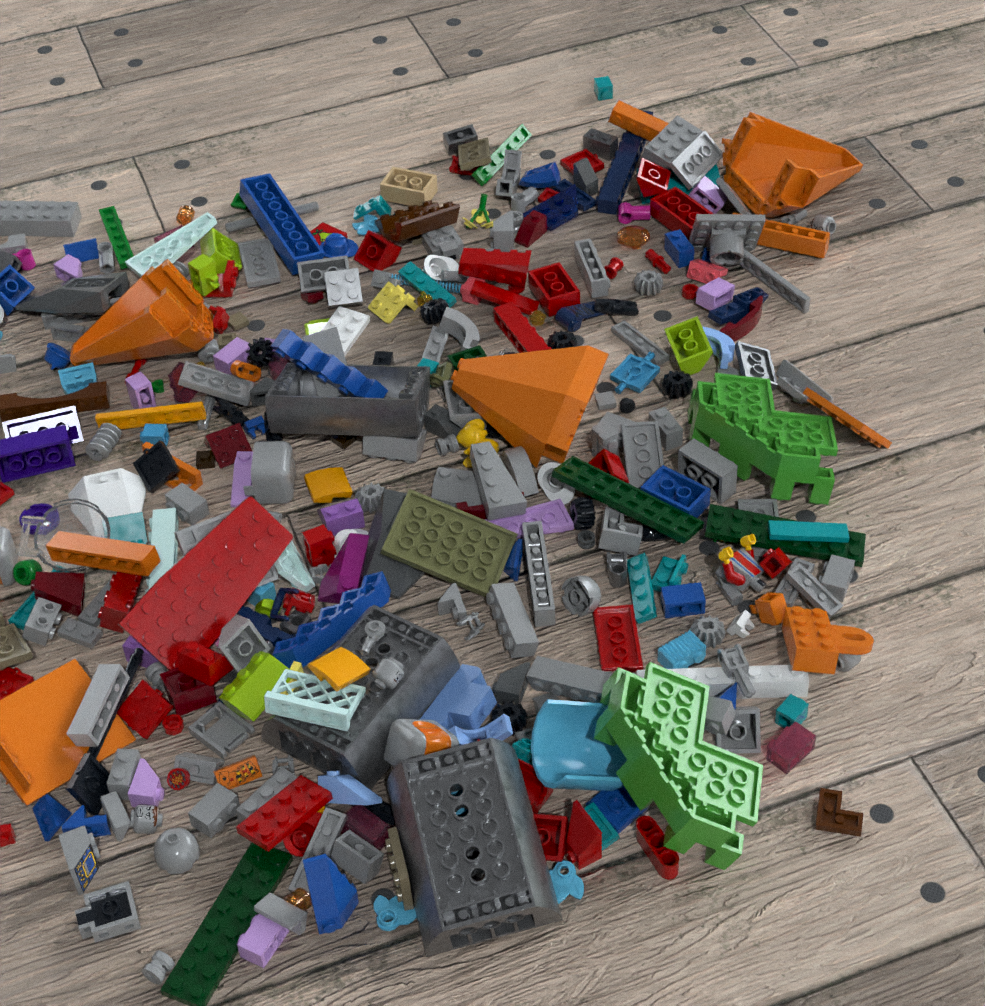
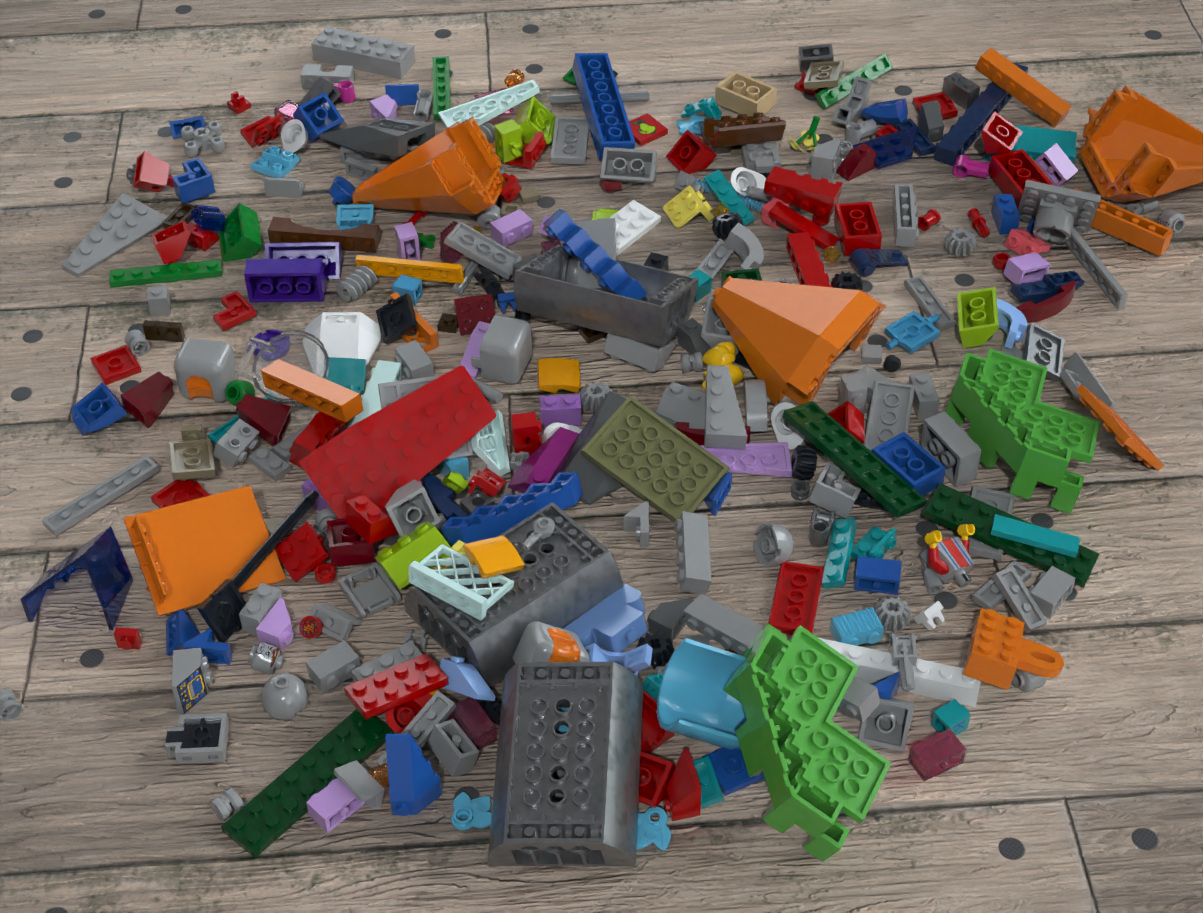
camera: 15 degrees right, 0 degrees up
(98, 705) = (256, 536): light grey brick -> none
(116, 814) = (238, 646): light grey slope -> none
(238, 773) = (369, 636): orange tile -> none
(245, 372) = (516, 246): orange beam -> none
(260, 359) = (531, 233): black gear -> none
(278, 602) = (465, 478): dark blue piece -> none
(338, 245) = (654, 139): blue piece -> none
(343, 288) = (642, 182): brick -> none
(388, 673) = (539, 573): light grey head -> none
(400, 875) = (486, 778): dark tan plate -> none
(442, 373) = (702, 294): olive bracket -> none
(474, 630) = (653, 554): light grey piece -> none
(538, 574) = (736, 513): light grey brick -> none
(603, 88) = (985, 33): teal brick -> none
(616, 307) = (917, 260): black hinge -> none
(633, 236) = (962, 192): clear orange dish -> none
(658, 856) = (758, 828): red beam -> none
(670, 142) = (1034, 104): light grey brick -> none
(677, 384) = (951, 352): black gear -> none
(696, 159) = (1054, 125): light grey plate -> none
(733, 197) = (1081, 172): light grey tile -> none
(770, 608) = (966, 605): orange brick -> none
(774, 562) = (988, 559): red brick -> none
(832, 818) = (956, 840): reddish brown plate -> none

